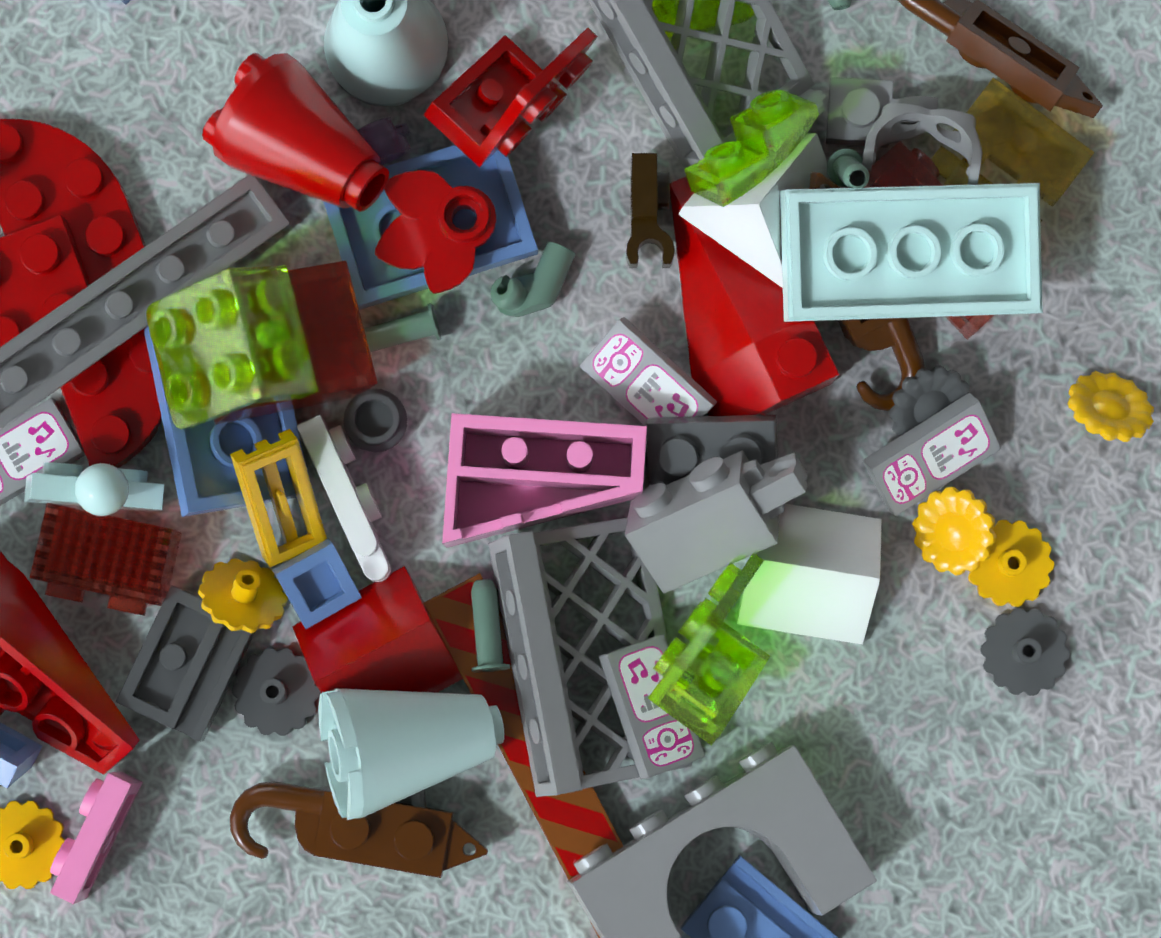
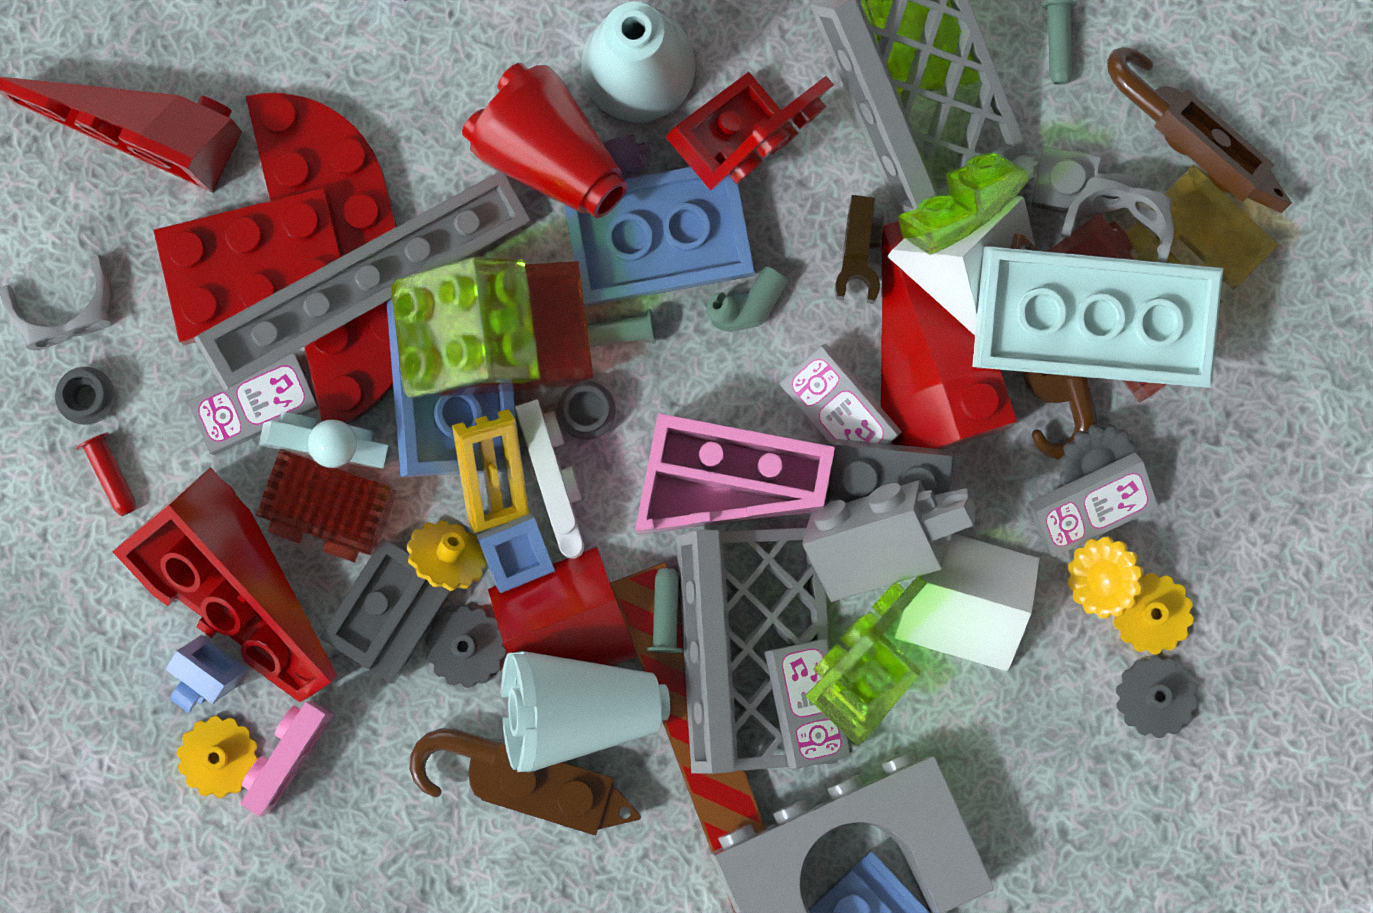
camera: 15 degrees right, 0 degrees up
(426, 230) = (654, 243): red plate -> none
(842, 164) = (1047, 233): sand green piece -> none
(1110, 406) = (1264, 481): yellow piece -> none

